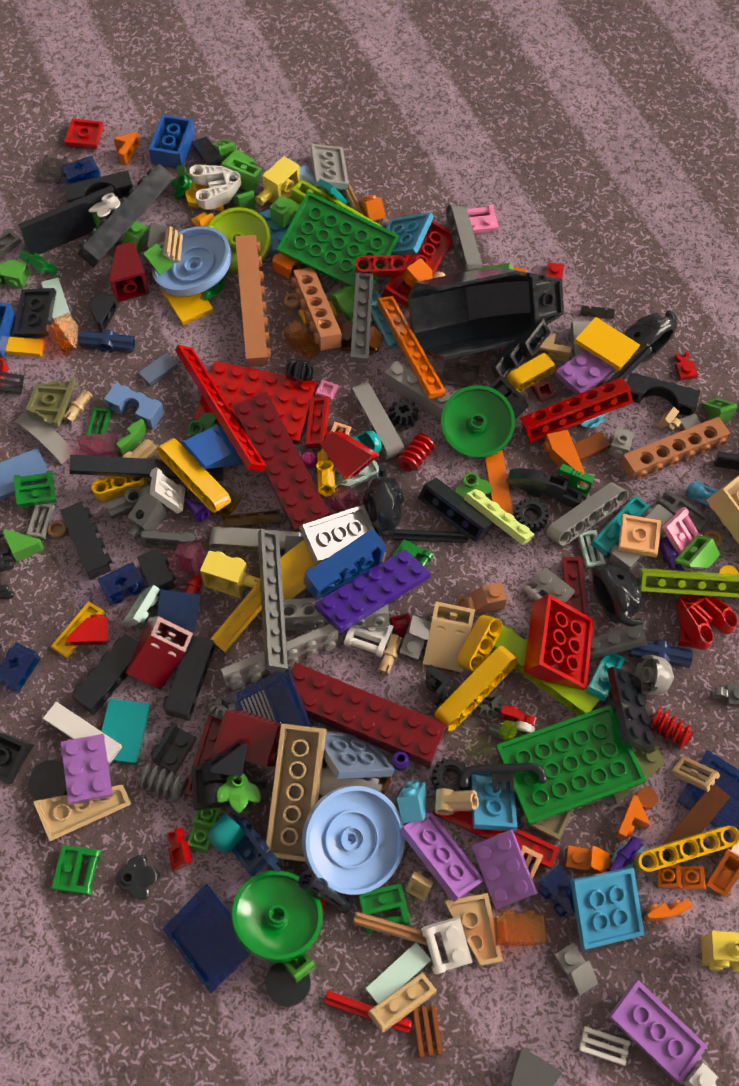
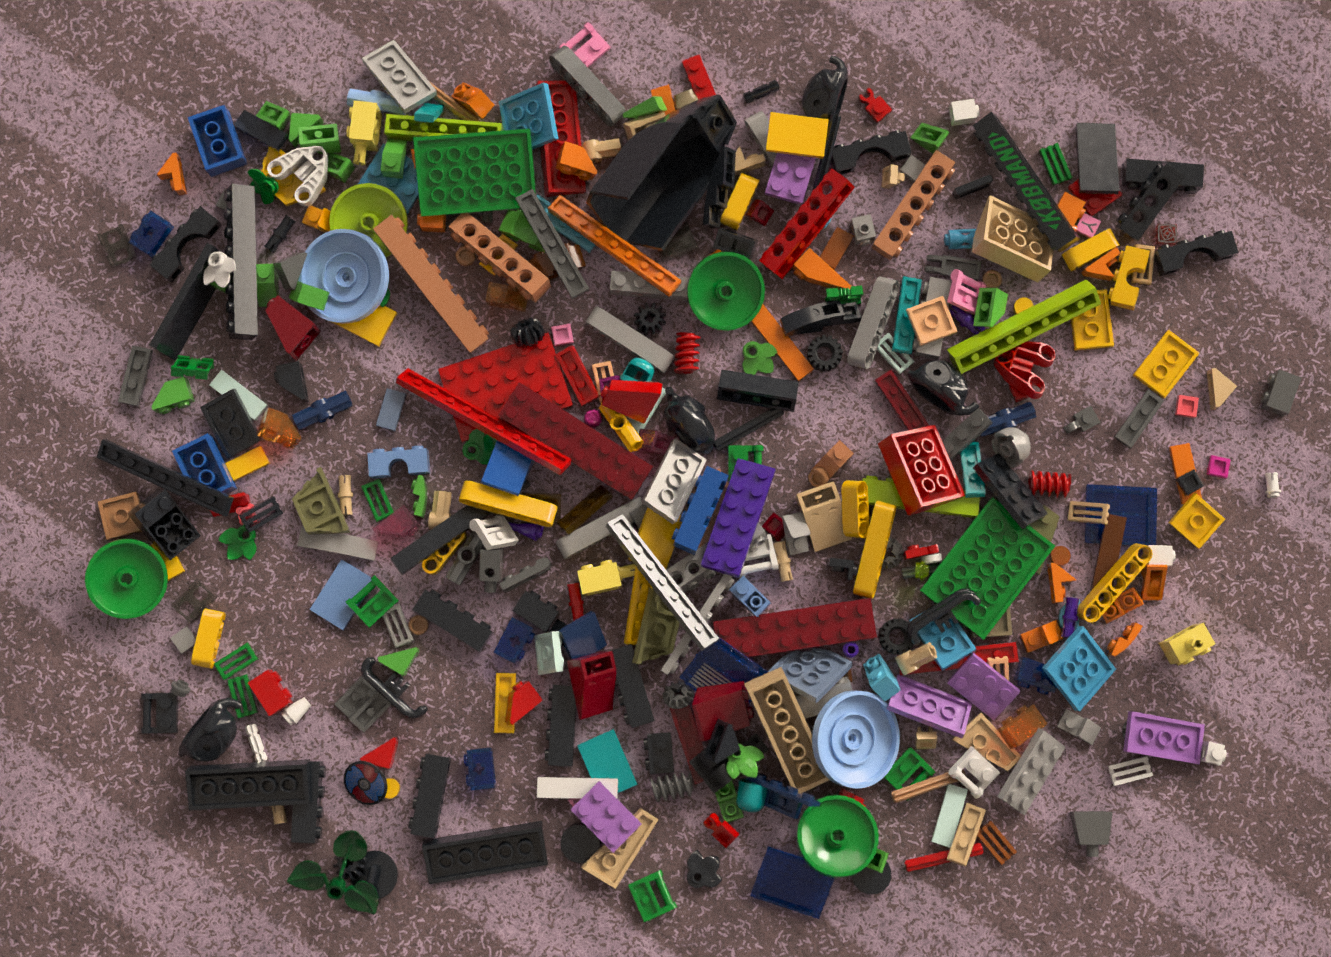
camera: 30 degrees left, 20 degrees up
(84, 134) = (116, 183): red plate -> none
(170, 217) = (279, 233): none -> black pin
(175, 246) = (316, 272): tan tile -> none
(190, 557) = (558, 581): clear pink slope -> none
(241, 641) = (657, 630): none -> olive wing
(319, 889) = (856, 795): black pin -> none
(340, 660) = (749, 596): none -> medium blue slope
(387, 261) = (542, 172): red beam -> none
(498, 516) = (799, 375): yellowish green plate -> none
(503, 979) = (1031, 771): none -> light grey plate
(550, 584) = (883, 413): light grey plate -> none

